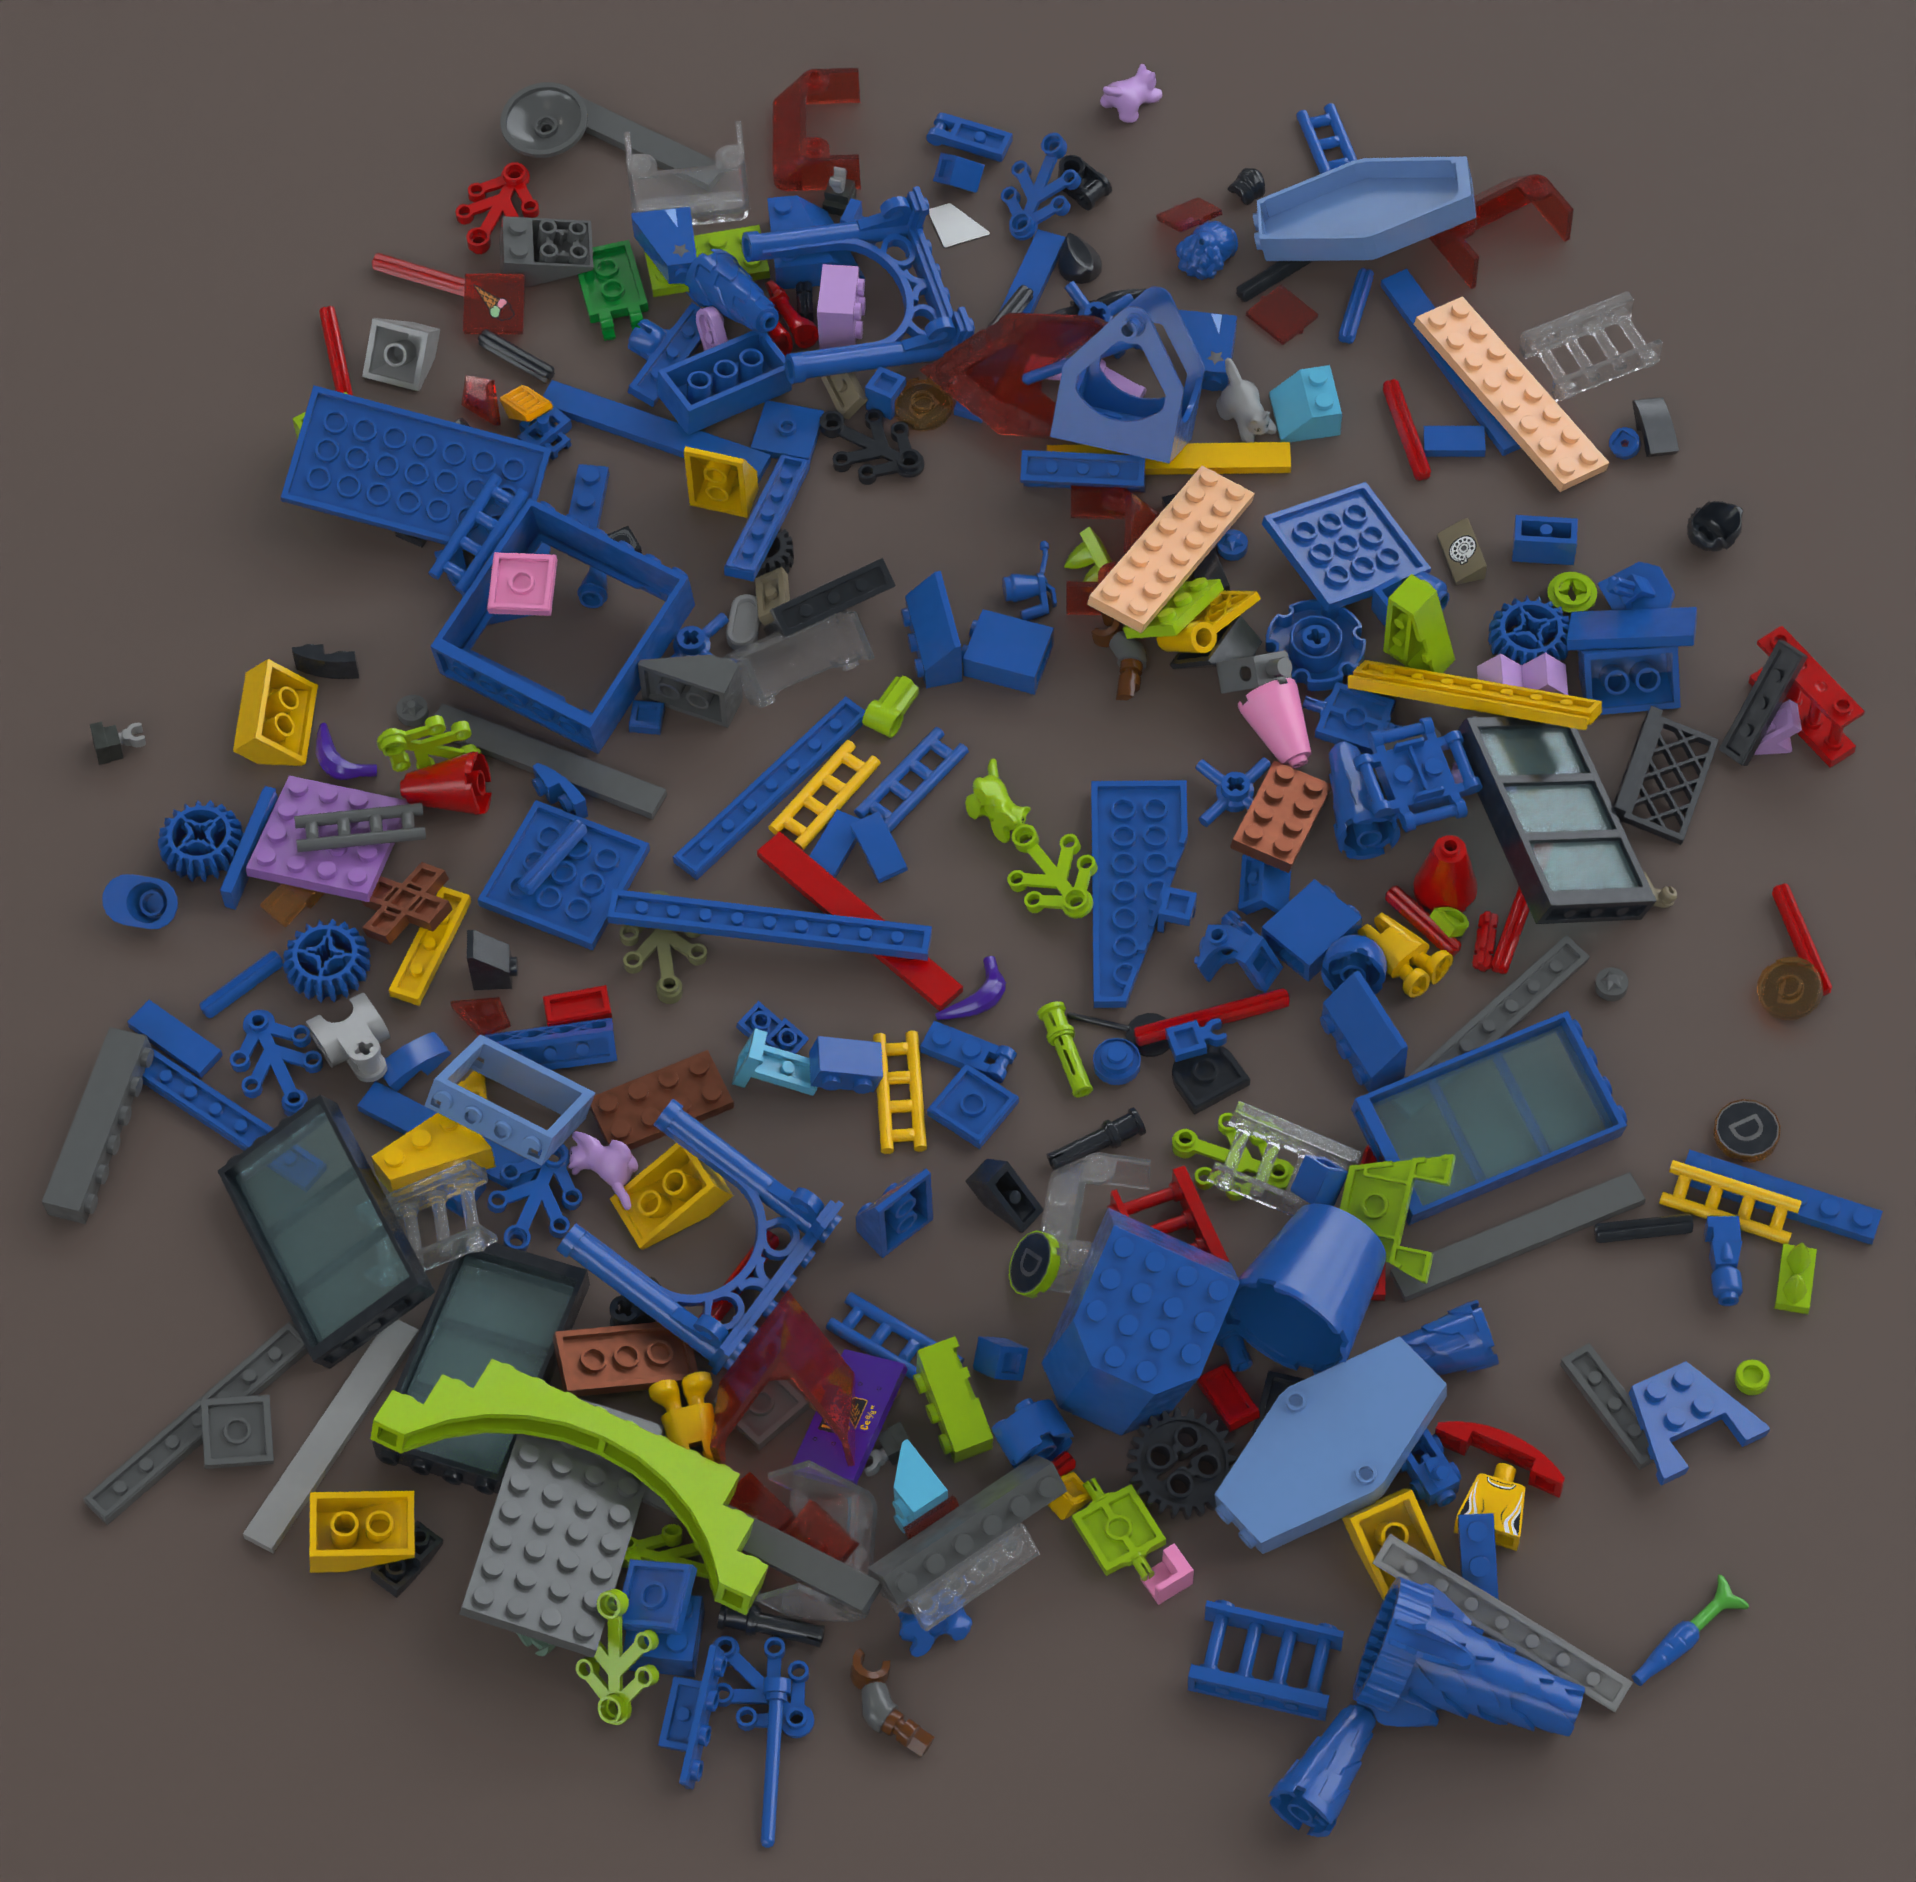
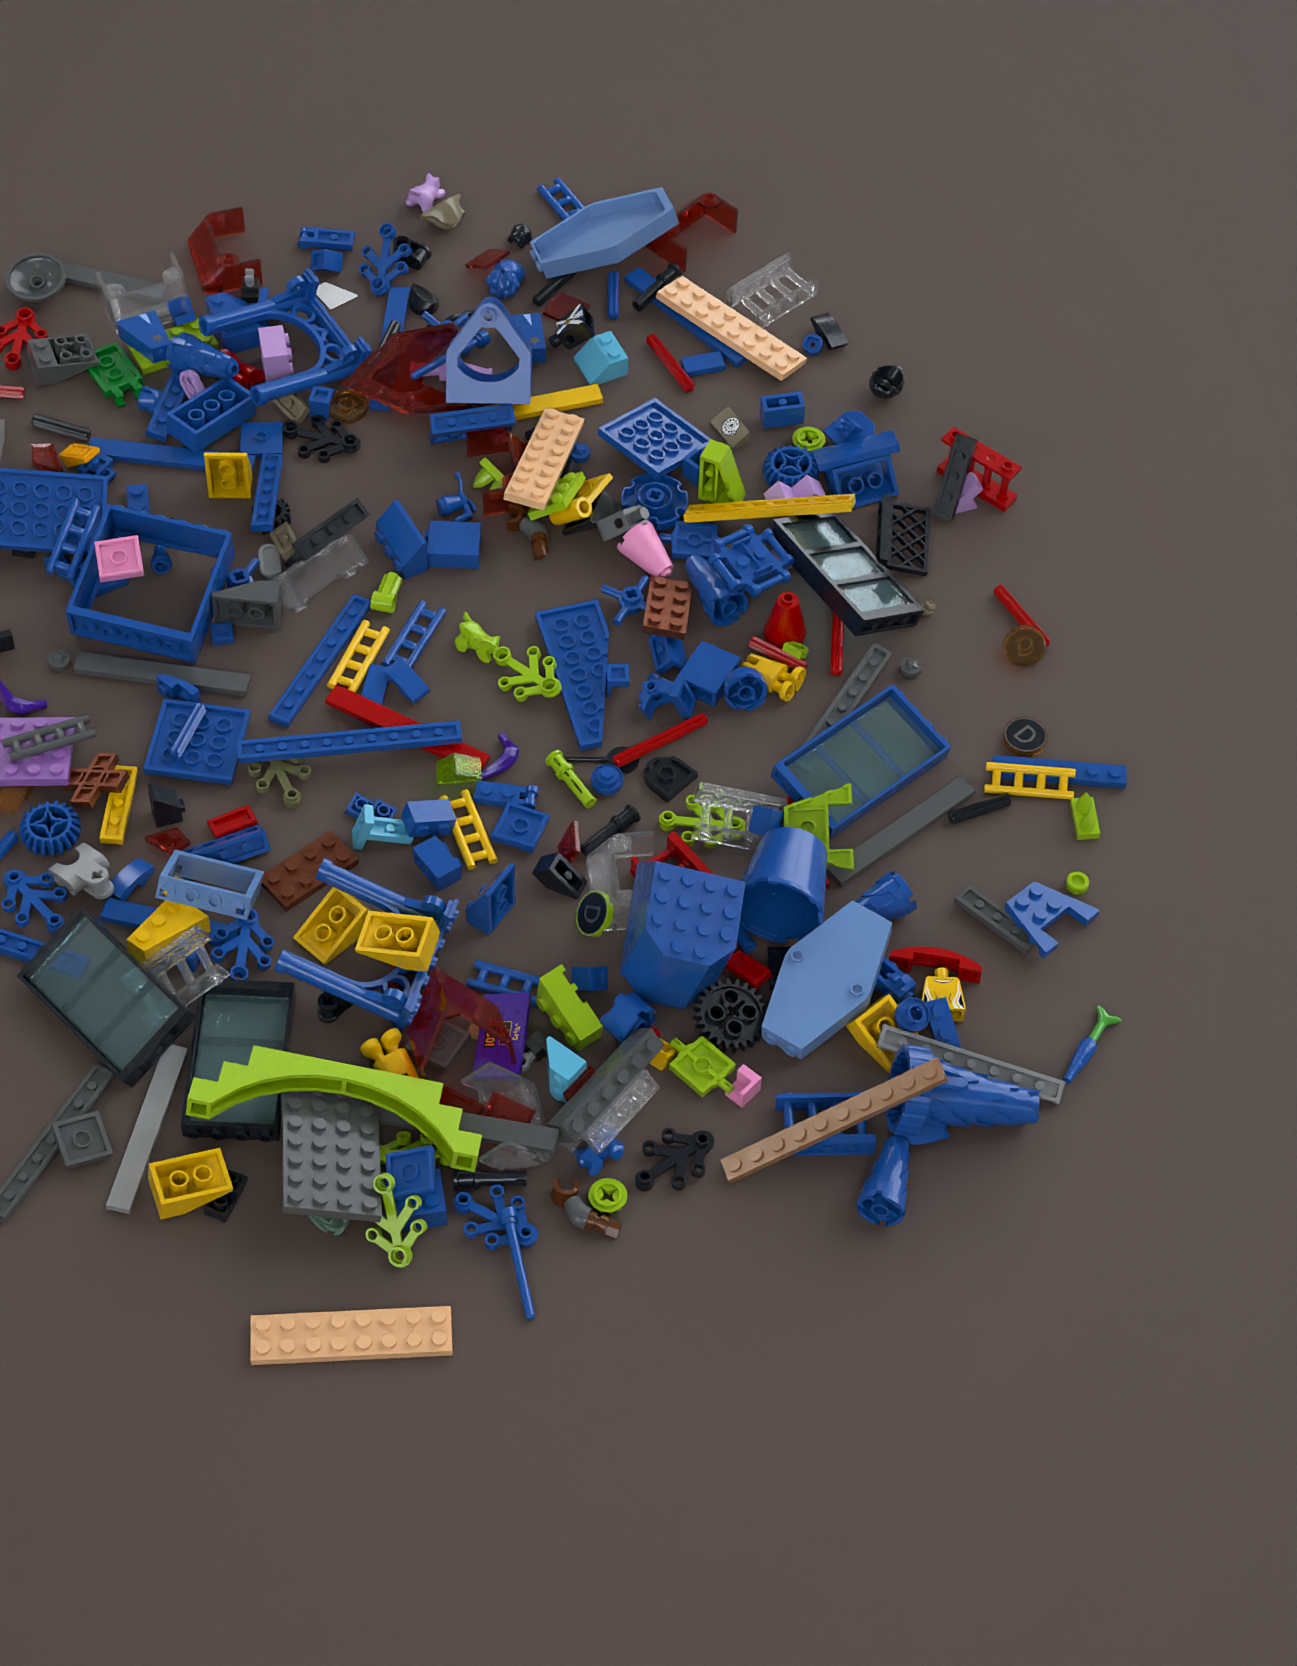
camera: 20 degrees left, 5 degrees down
(395, 743) = (61, 675): lime plant -> none
(451, 784) = (102, 700): red cone -> none
(494, 303) = (36, 396): clear red tile -> none
(516, 1807) = (351, 1335): none -> light nougat plate
(610, 1162) = (287, 913): lavender animal -> none
(620, 1358) = (335, 1032): copper plate -> none
(688, 1715) = (452, 1247): blue bracket -> none
(729, 211) = (181, 310): none -> blue panel
(744, 1243) = (399, 939): none -> yellow slope
(804, 300) = (247, 356): black axle -> none
(839, 1134) = (437, 863): none -> blue brick
(911, 999) = (458, 769): none -> clear neon green slope
(934, 1677) = (607, 1186): none -> lime gear
(1032, 1149) = (570, 844): none -> clear red piece
(1041, 1658) = (676, 1157): none -> black plant
(1151, 131) = (445, 214): none -> dark tan hat
(1190, 1040) = (652, 755): blue plate -> none
(1242, 402) = (558, 365): light grey animal -> none
(1269, 1666) = (834, 1120): none -> medium nougat plate
(1279, 349) = (573, 328): none -> black torso
(1364, 1034) = (765, 726): blue slope -> none
(1432, 298) = (662, 280): none -> black pin
(1435, 1530) = (912, 1015): none -> blue plate
(1485, 941) = (822, 658): red axle -> none
(1725, 1245) = (1036, 812): blue piece -> none

